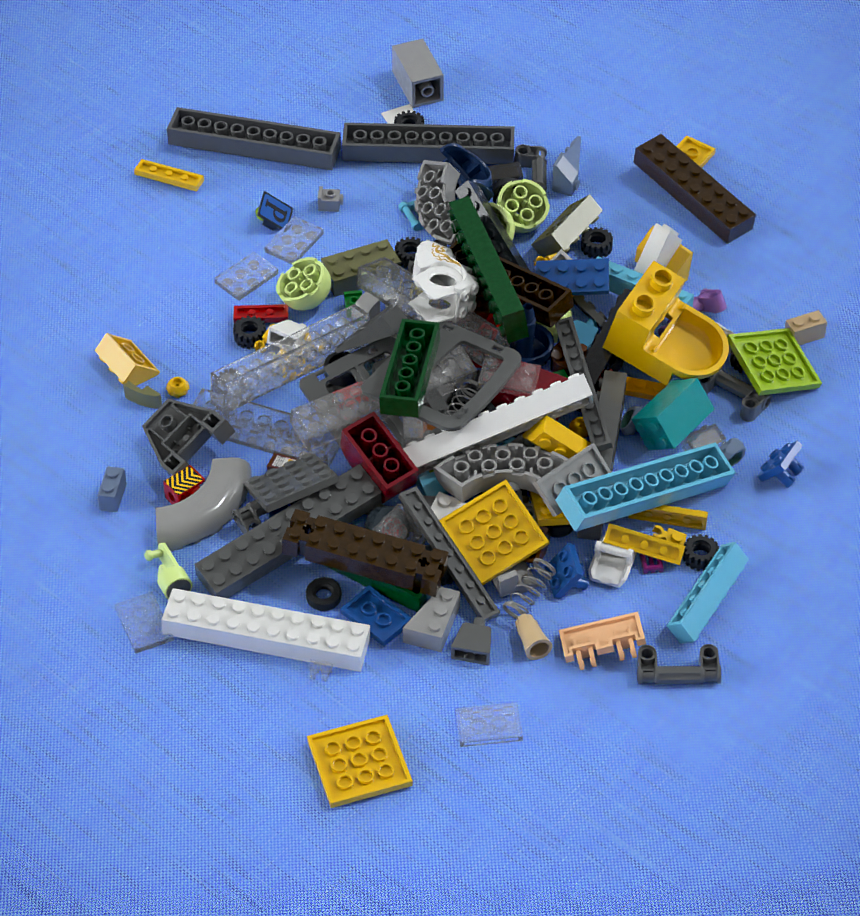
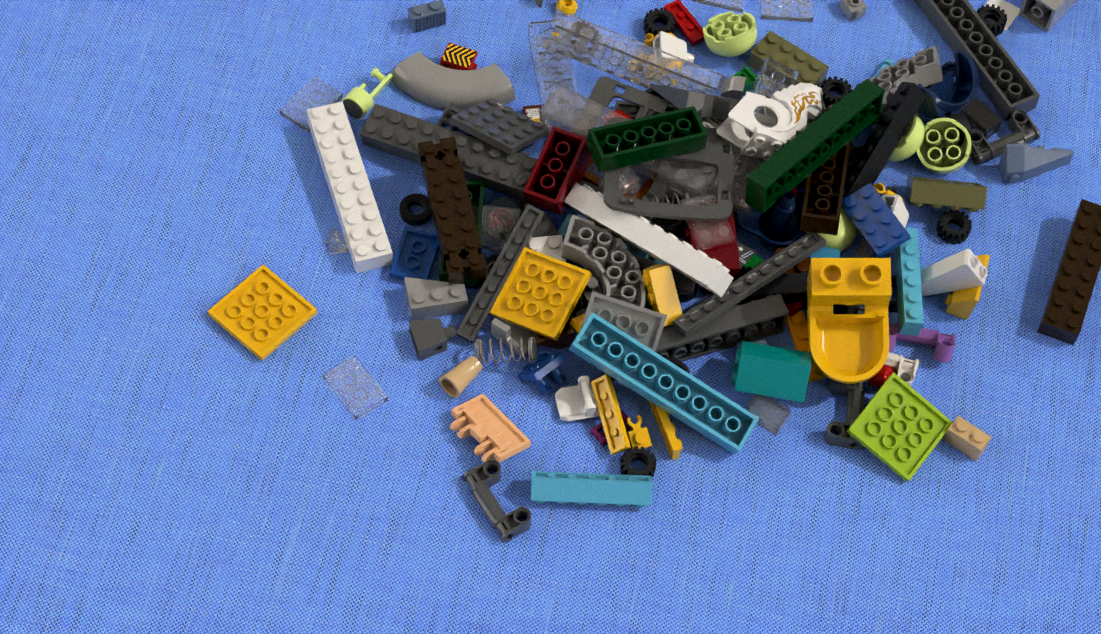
camera: 55 degrees right, 10 degrees up
(181, 430) = (505, 28): dark grey wedge -> none
(733, 450) = (768, 440): sand blue rock -> none
(779, 462) = (772, 482): blue plate -> none

